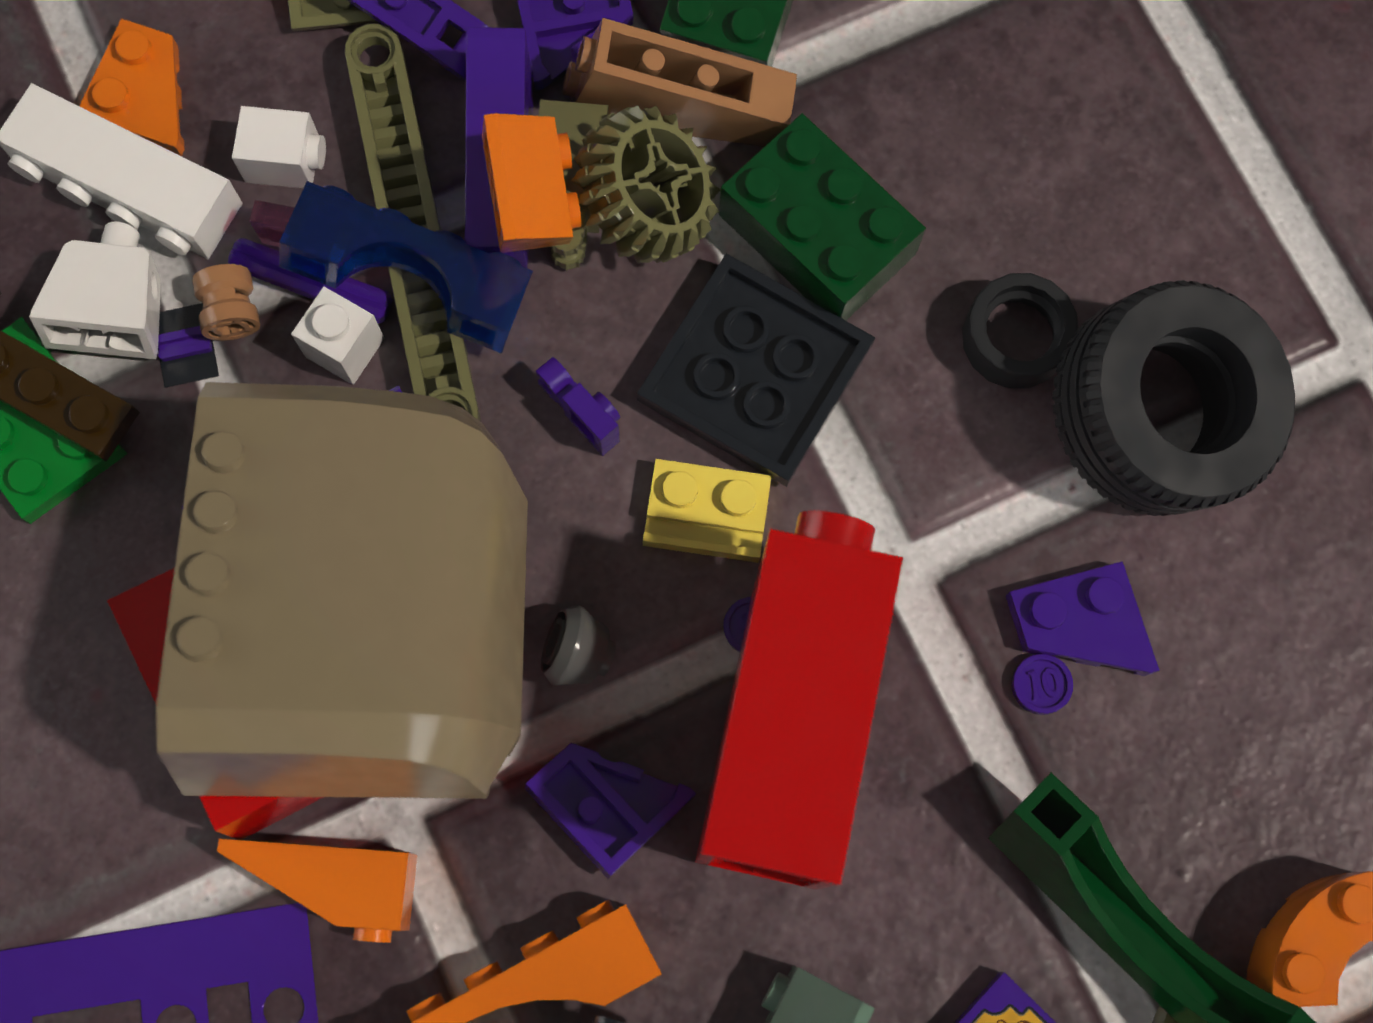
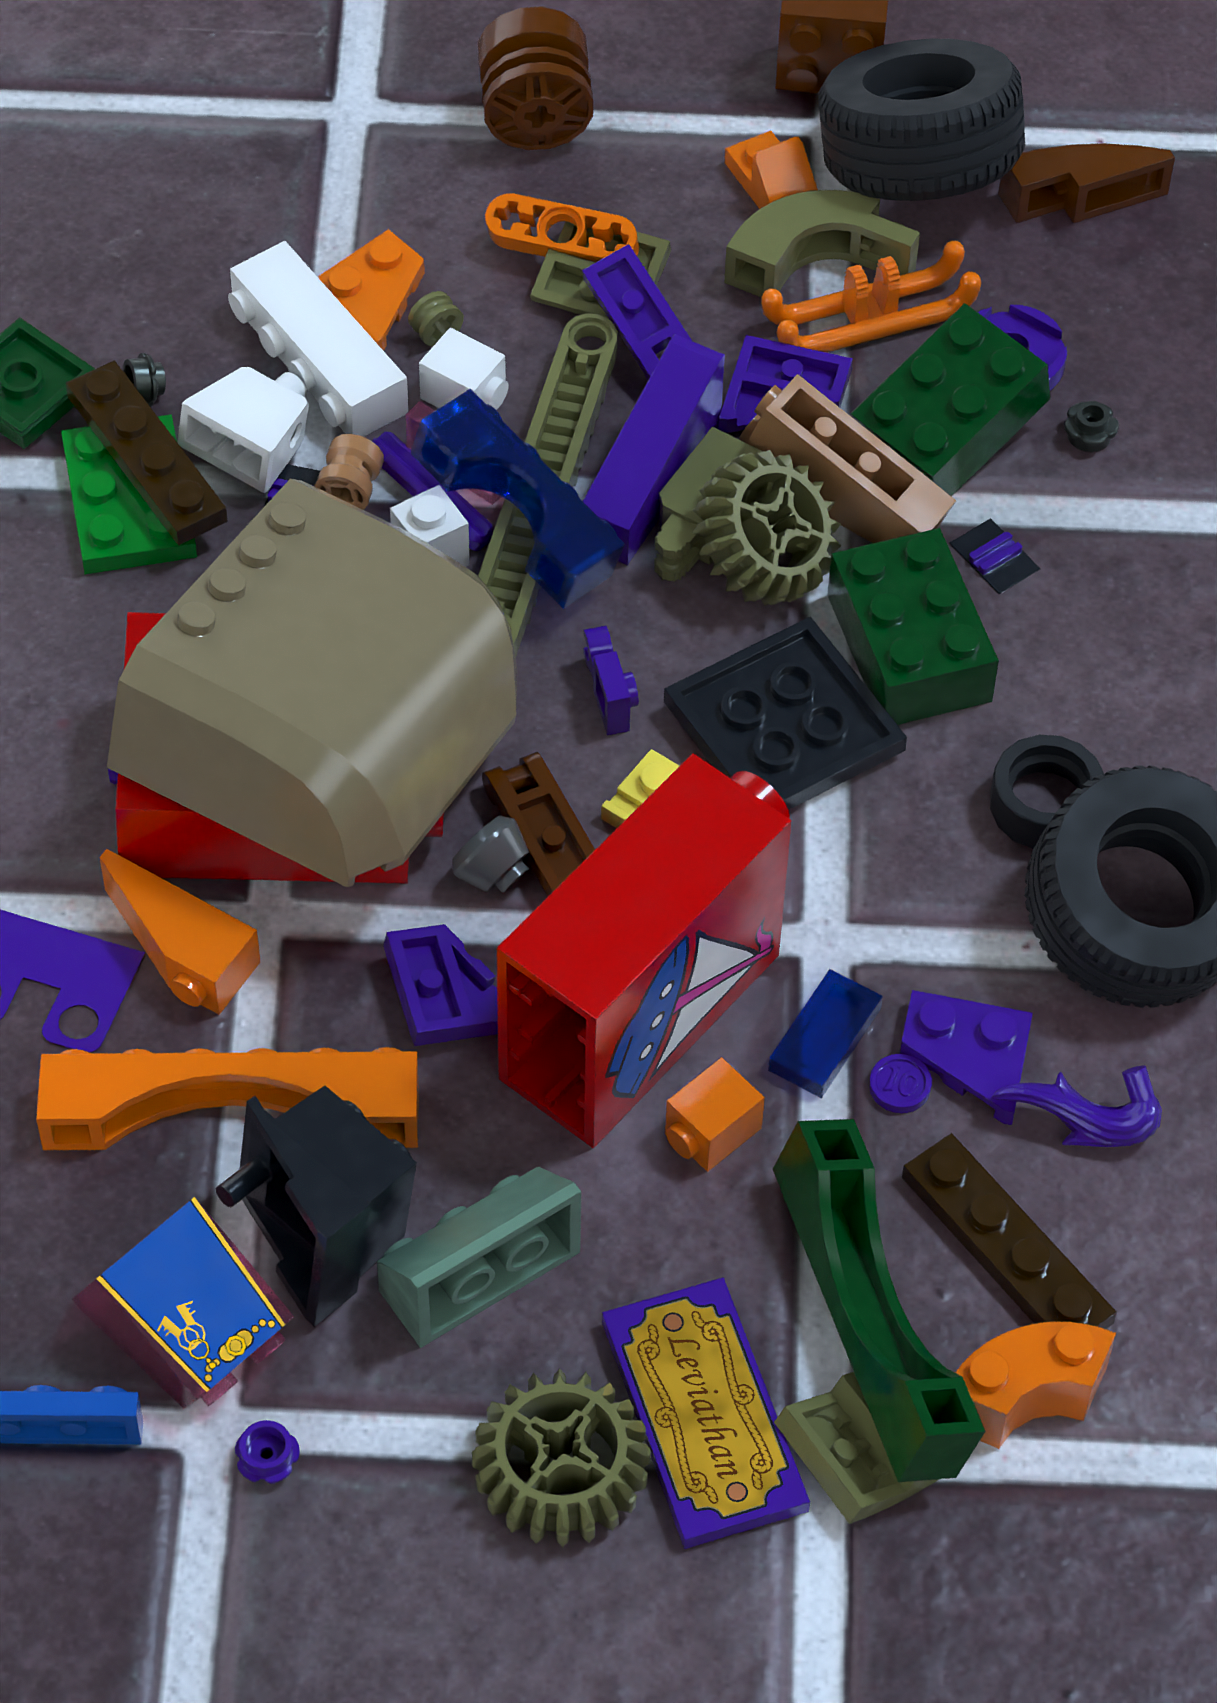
camera: 30 degrees right, 20 degrees down
(217, 95) = (434, 316): none -> olive bush
(528, 181) = (656, 467): orange slope -> none
(605, 588) = (543, 816): none -> reddish brown plate
(841, 104) = (995, 555): none -> black piece
(911, 815) = (713, 1115): none -> orange brick
(955, 669) = (825, 1033): none -> clear blue tile
(1218, 800) = (1003, 1237): none -> dark brown plate
(1247, 636) = (1092, 1122): none -> dark purple piece

